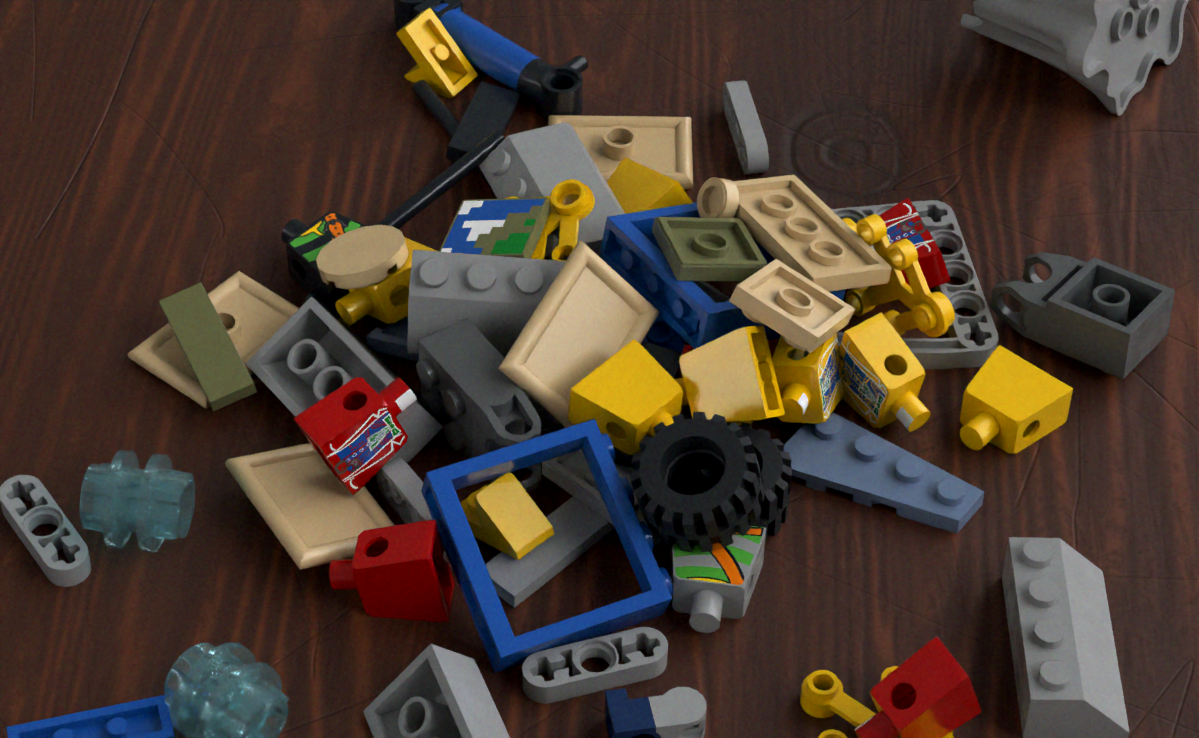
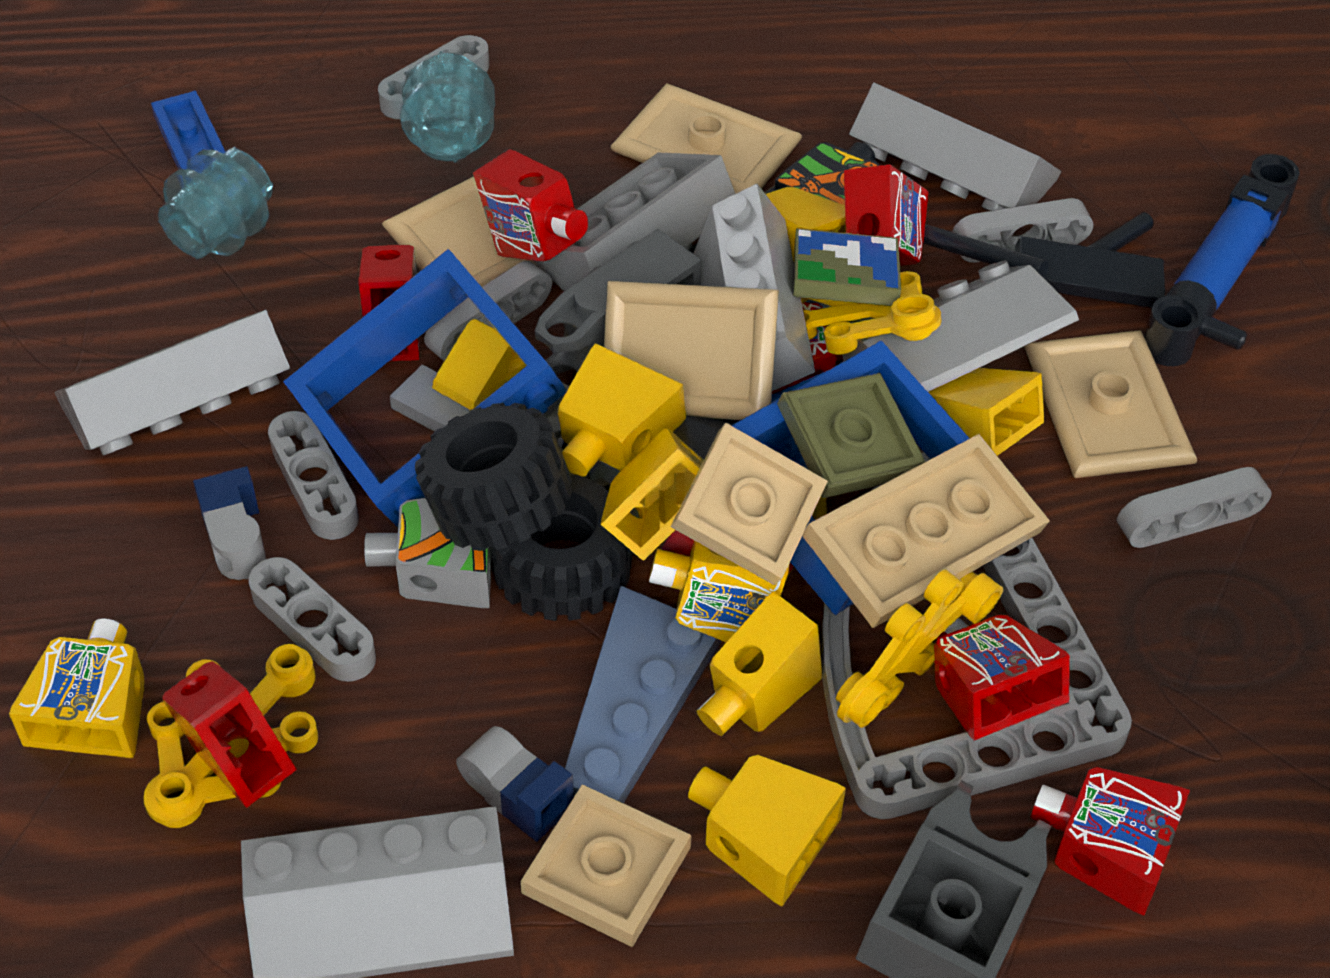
camera: 80 degrees right, 5 degrees up
(207, 346) = (666, 118): olive tile -> none
(309, 174) = (952, 151): none -> light grey slope
(362, 256) = (797, 183): tan tile -> none
(410, 210) = (887, 205): none -> red torso
(418, 148) = (1052, 221): none -> light grey beam
(436, 55) = (1185, 211): yellow slope -> none
(718, 198) = (948, 436): tan tile -> none
(758, 694) = (318, 640): none -> light grey beam
(960, 545) = (517, 781): none -> leg
(1033, 222) = (1115, 832): none -> red torso
(1036, 499) = (606, 865): none -> tan plate

